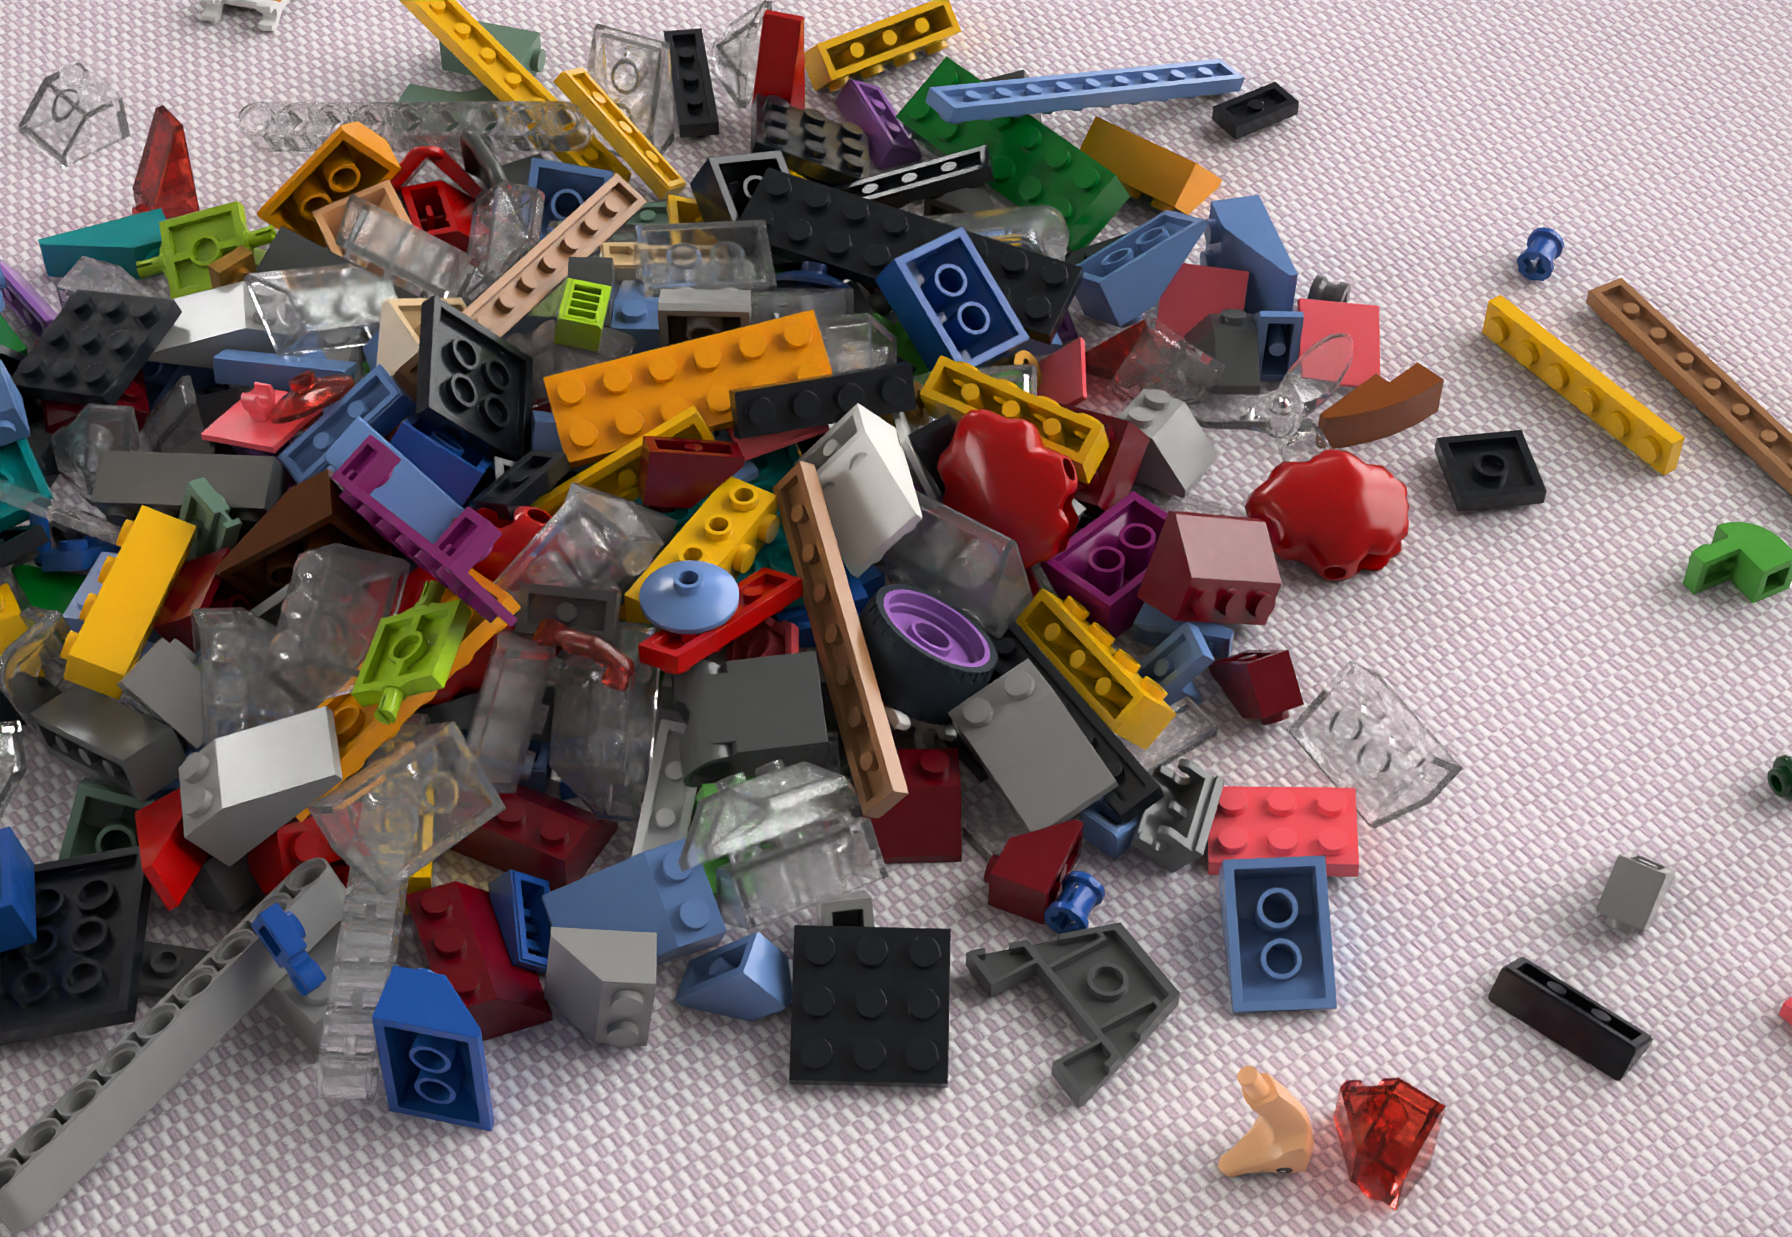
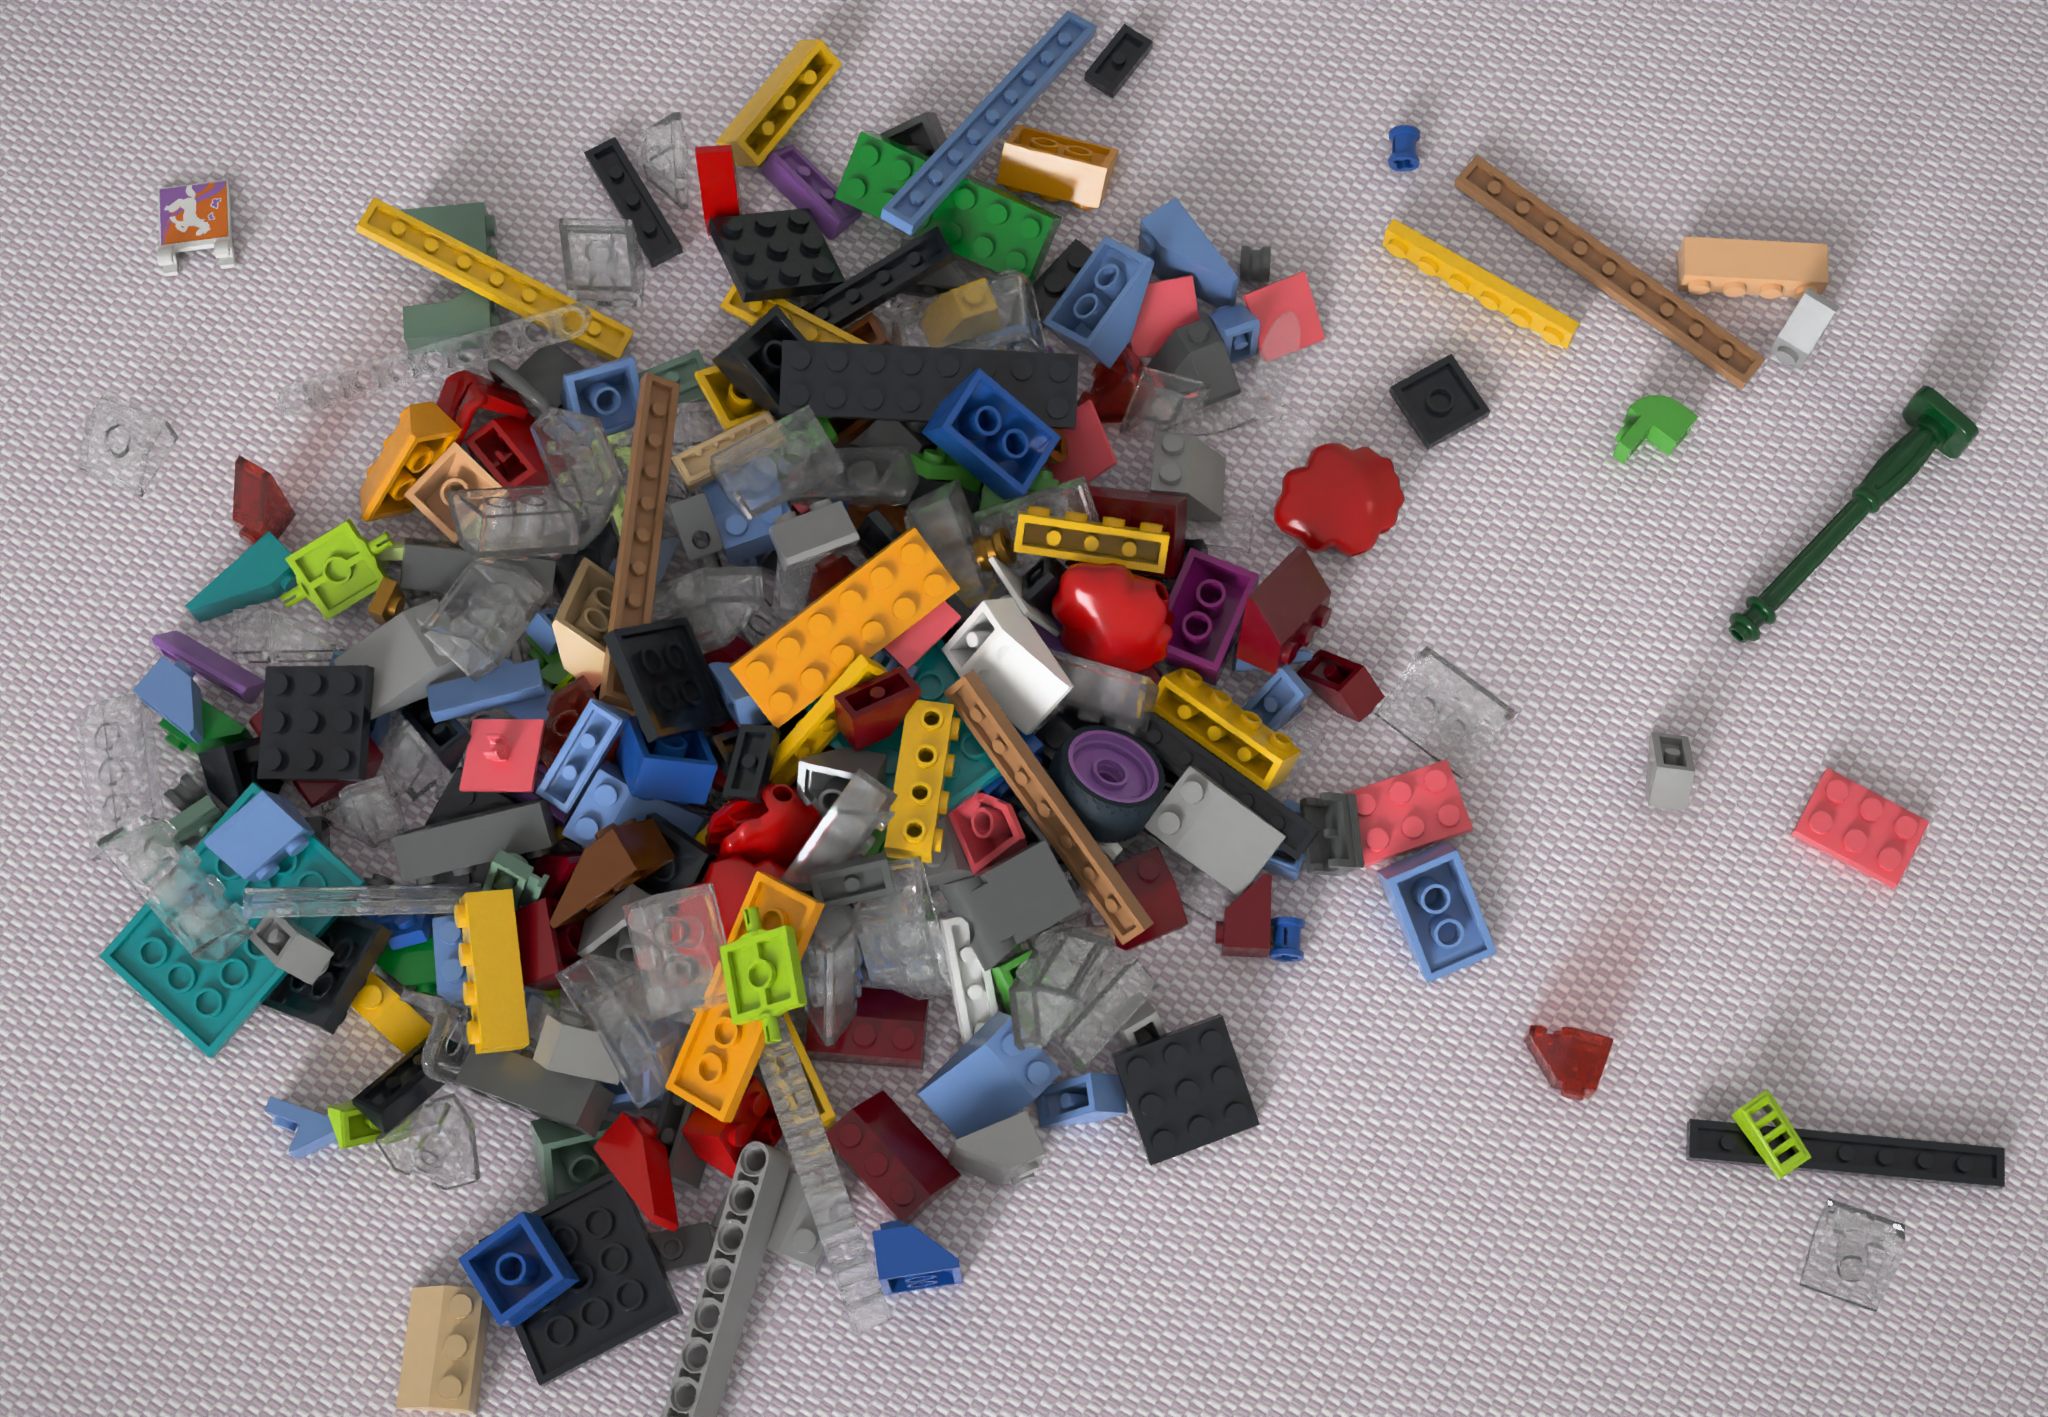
camera: 20 degrees left, 25 degrees up
(257, 782) = (690, 1107): light grey slope -> none
(283, 938) = (770, 1224): blue plate -> none
(309, 395) = (540, 734): clear red dish -> none
(407, 492) = (654, 805): medium blue slope -> none
(408, 806) = (810, 1089): clear slope -> none
(450, 557) = (783, 908): magenta bracket -> none
(522, 912) = (902, 1104): blue slope -> none
(582, 314) = (716, 592): lime slope -> none
(619, 666) = (885, 913): clear red arm -> none
(620, 132) = (614, 304): yellow tile -> none
(689, 597) = (943, 853): medium blue dish -> none
(759, 598) = (963, 838): red plate -> none
(811, 276) = (864, 438): dark blue dish -> none
(821, 399) = (952, 603): black plate -> none
(1101, 984) = (1332, 1000): dark grey wing -> none
(1280, 1135) = (1495, 1085): light nougat animal -> none
(1382, 407) = (1338, 368): dark orange slope -> none
(1569, 1018) = (1654, 895): black slope -> none

